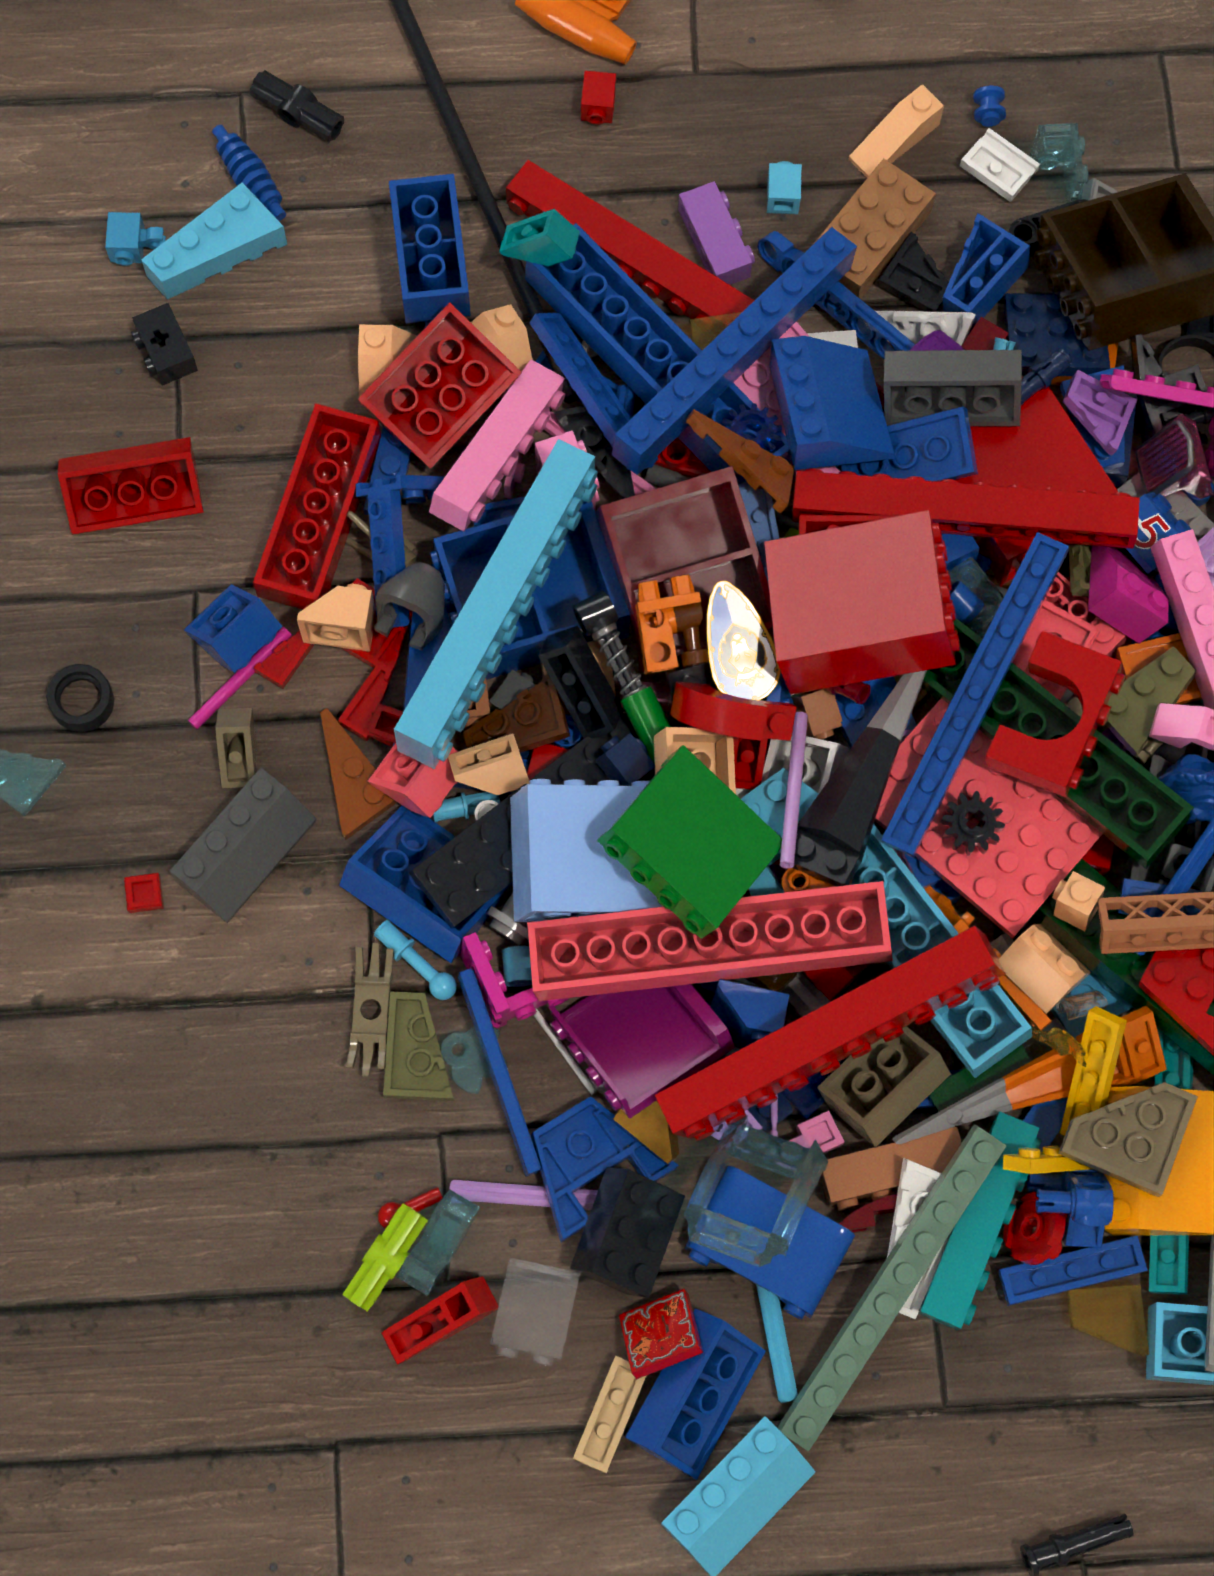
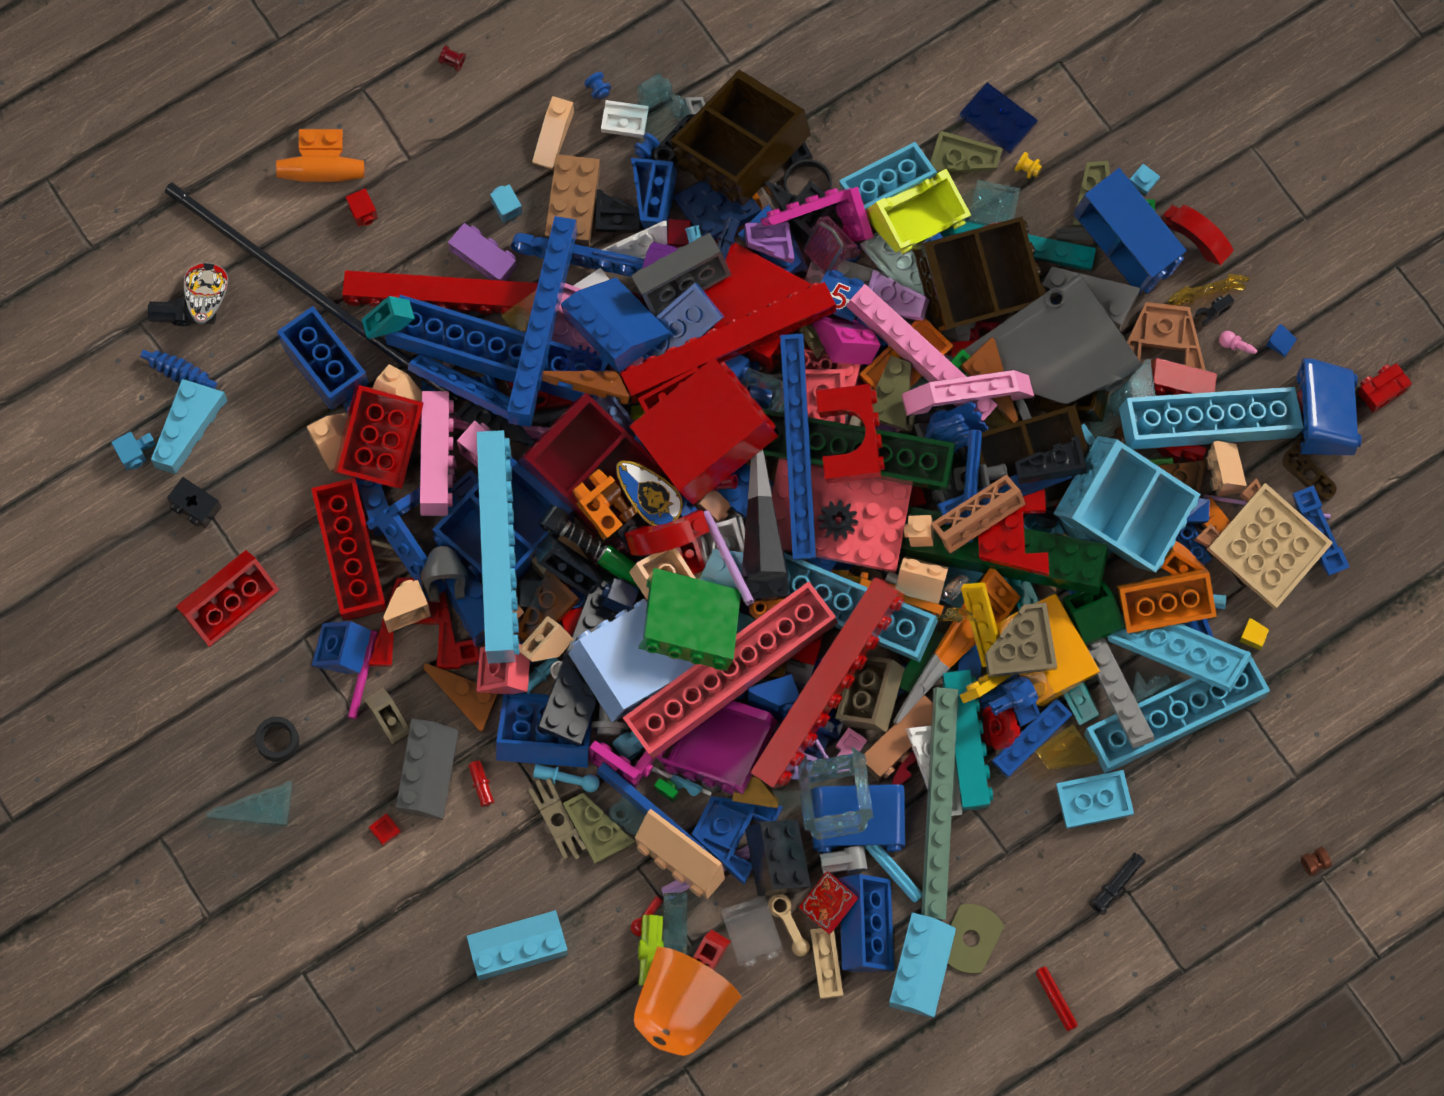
camera: 30 degrees left, 0 degrees up
(217, 1144) = (517, 945): none -> medium azure slope
(302, 904) = (481, 783): none -> red axle
(340, 93) = (204, 290): none -> shield
(389, 1349) = (684, 999): none -> orange piece
(497, 1151) = (679, 855): none -> light nougat slope
(538, 1052) = (666, 789): none -> green plate
(572, 1070) = (692, 788): none -> medium azure piece
(590, 1369) = (800, 945): none -> tan piece
(724, 1291) = (850, 860): none -> light grey piece
(860, 1494) = (987, 925): none -> olive piece
(1006, 214) = (644, 150): none -> blue wheel
(1111, 1406) = (1094, 799): none -> medium azure plate

